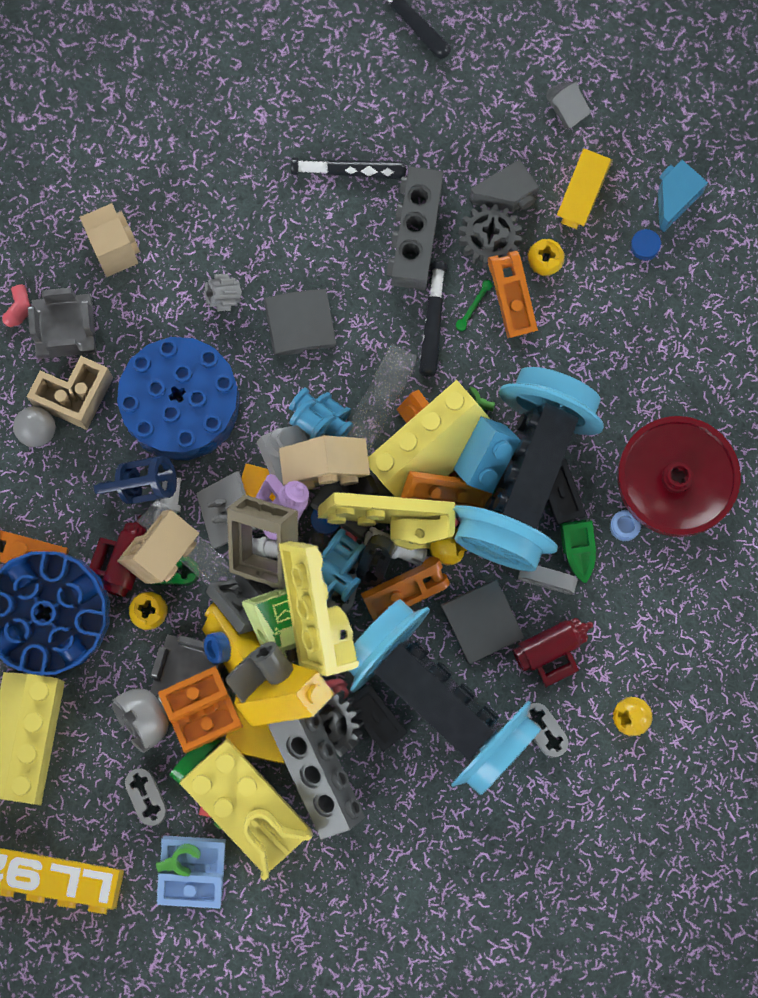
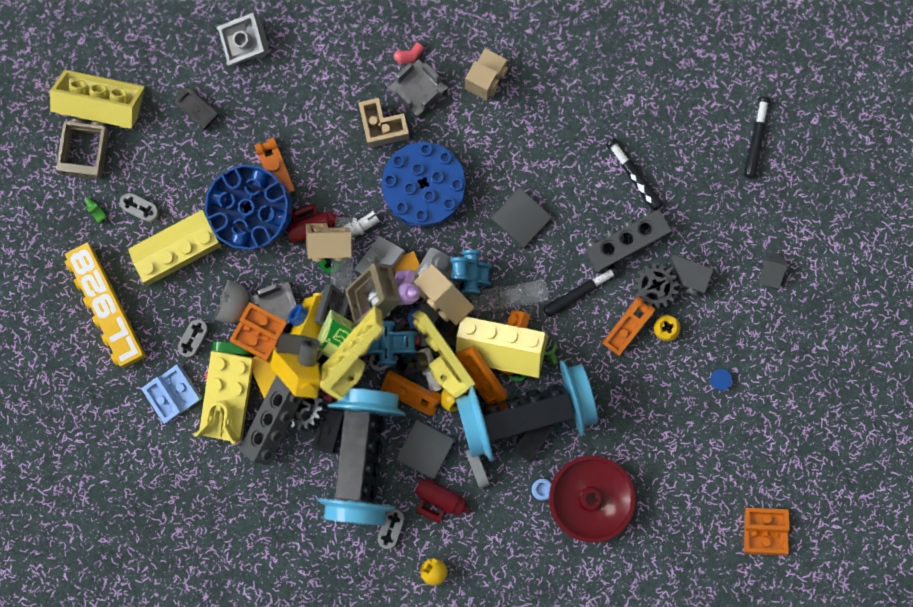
camera: 55 degrees right, 5 degrees up
(34, 426) = (347, 118): light grey piece -> none
(129, 482) = (354, 196): dark blue piece -> none
(153, 620) = (300, 263): yellow piece -> none
(173, 863) = (168, 382): bright green piece -> none
(222, 292) = (503, 161): light grey gear -> none
(461, 324) = (590, 309): green hinge -> none
(486, 454) = (517, 381): dark azure brick -> none
(579, 547) = (509, 472): green plate -> none
(583, 188) = (727, 318): yellow slope -> none
(677, 192) = (766, 375): dark azure slope -> none

